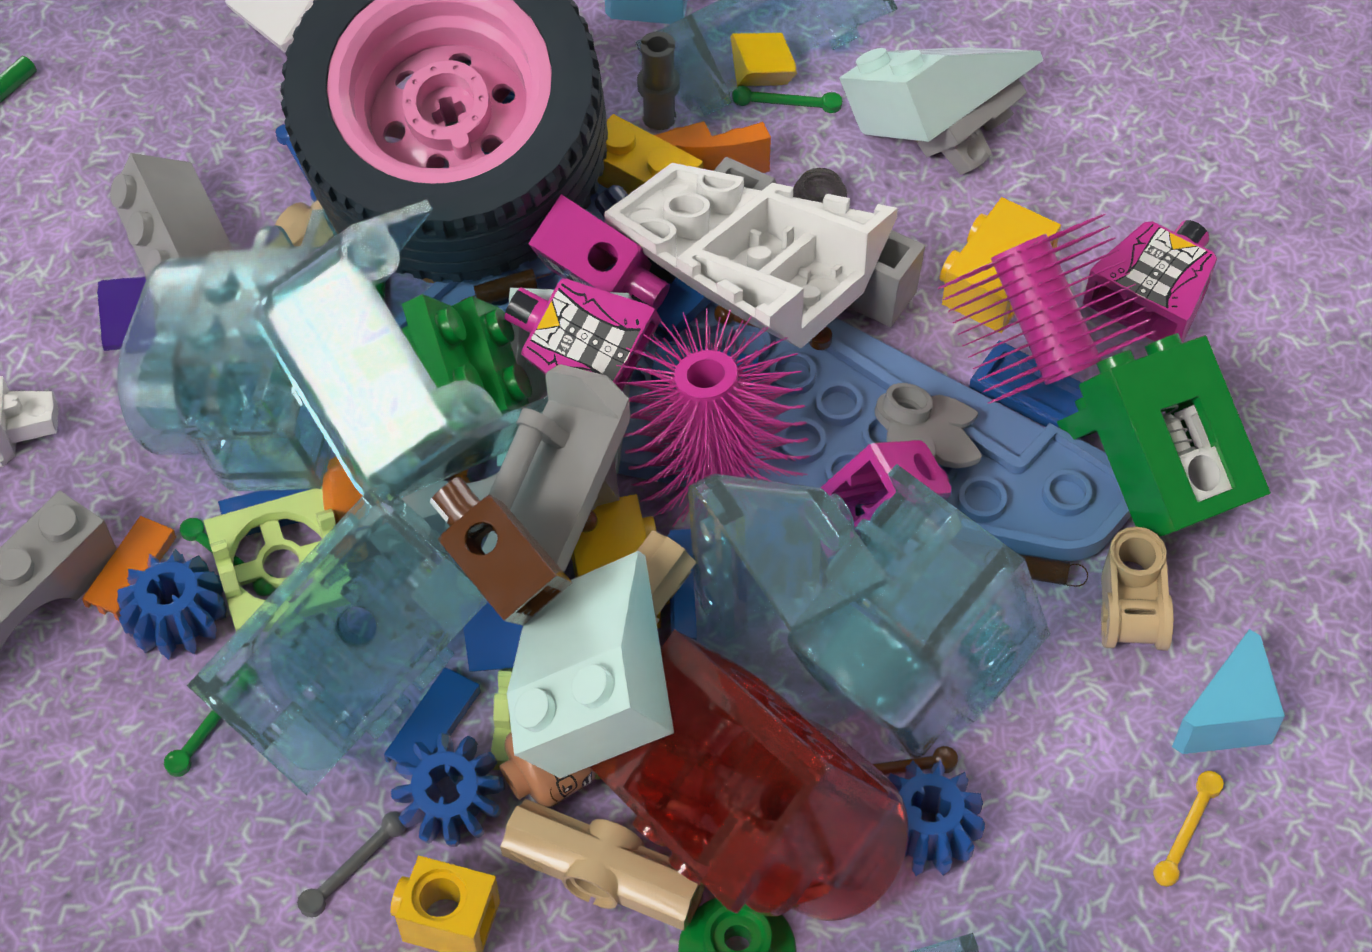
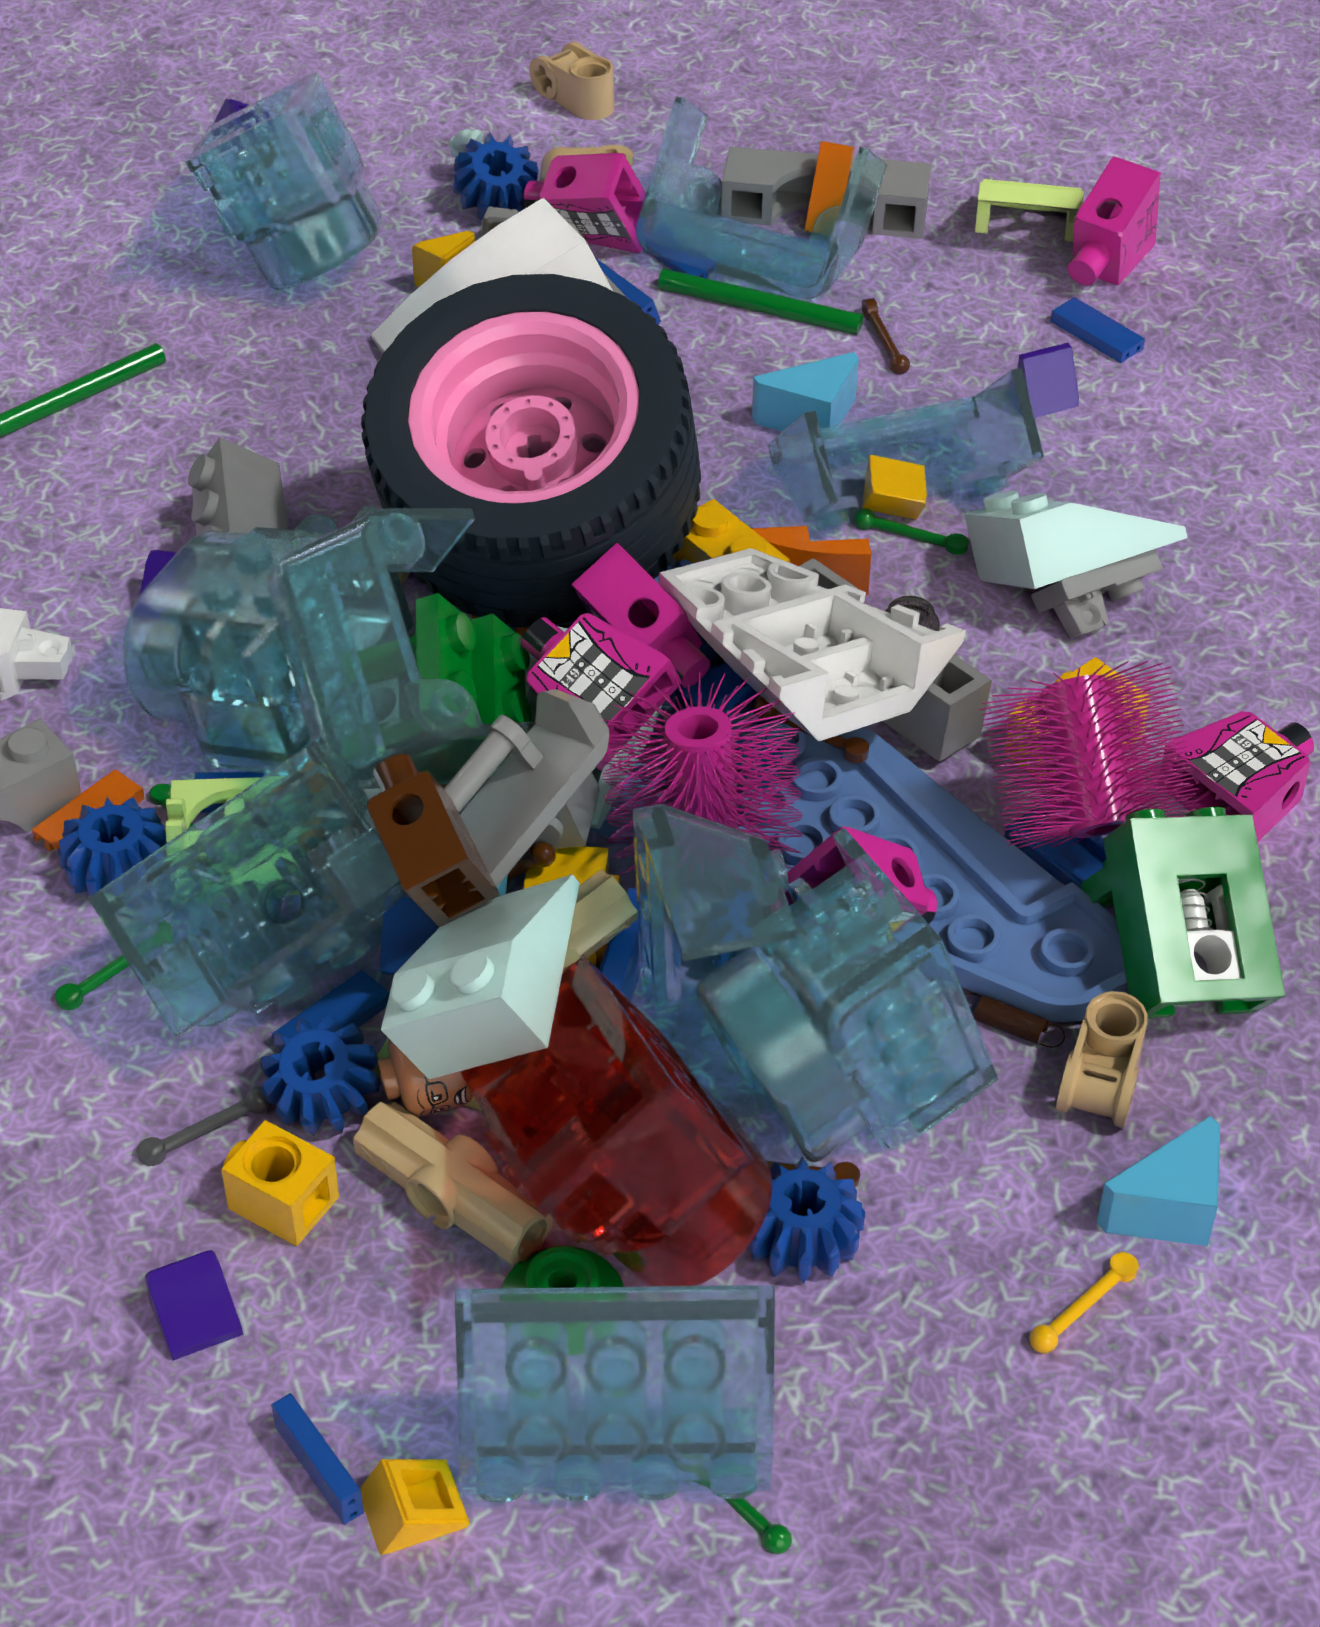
camera: 15 degrees right, 10 degrees down
(658, 80) = (773, 478): dark grey pin -> none
(936, 420) = (943, 852): light grey plate -> none

